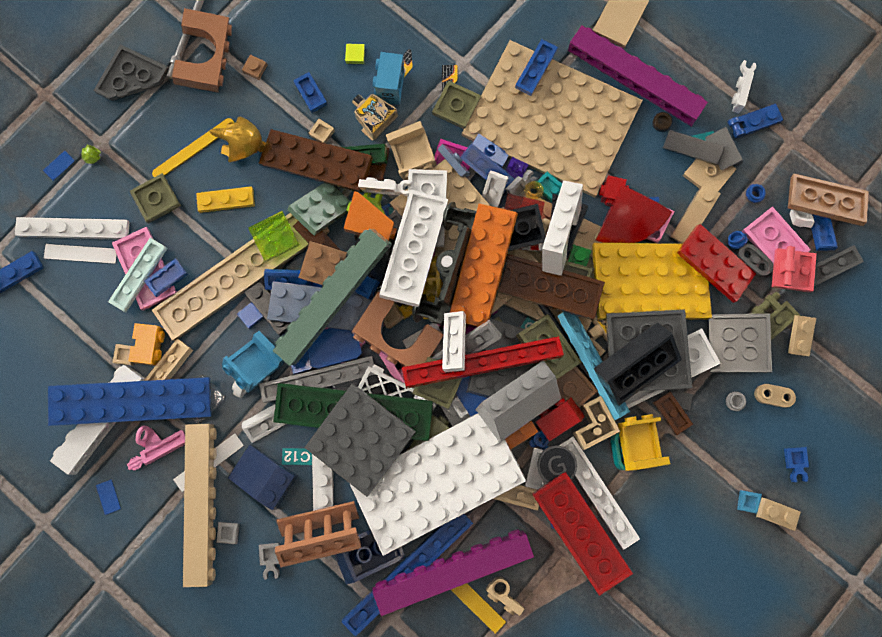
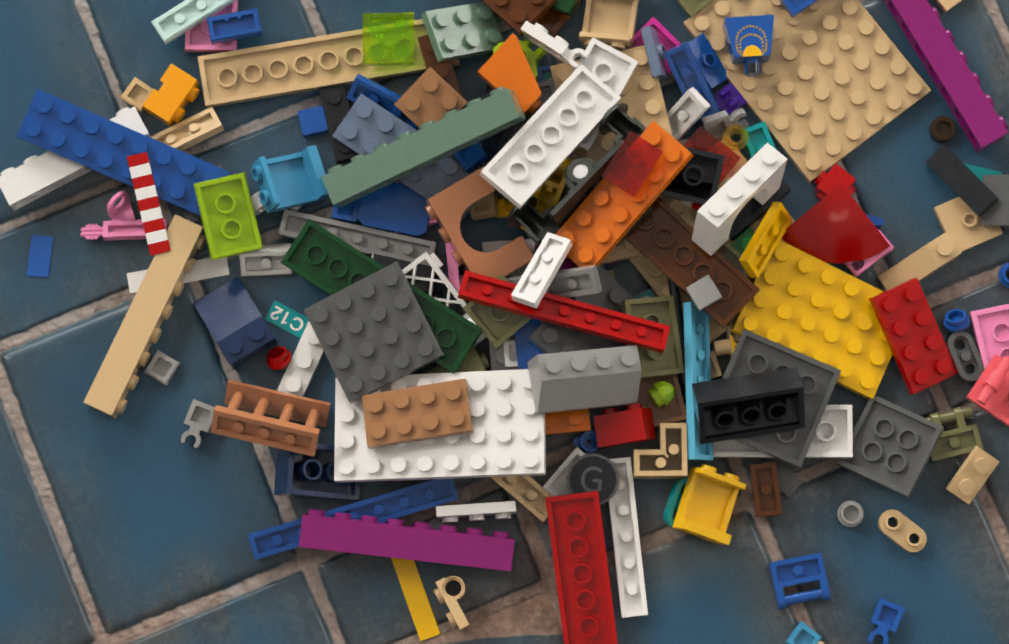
camera: 20 degrees right, 0 degrees up
(163, 426) = (148, 203): none -> sticker
(222, 408) = (228, 216): none -> lime tile
(304, 487) = (278, 358): none -> red plate
(417, 481) = (417, 413): none -> medium nougat plate
(480, 239) = (632, 164): none -> clear red plate
(489, 525) = (476, 511): none -> white plate
(511, 123) = (749, 41): none -> blue torso
(569, 302) = (703, 293): none -> light grey tile
(573, 383) = (662, 393): none -> lime plate
(590, 247) = (765, 239): none -> yellow plate
(722, 458) = (799, 571): none -> blue plate

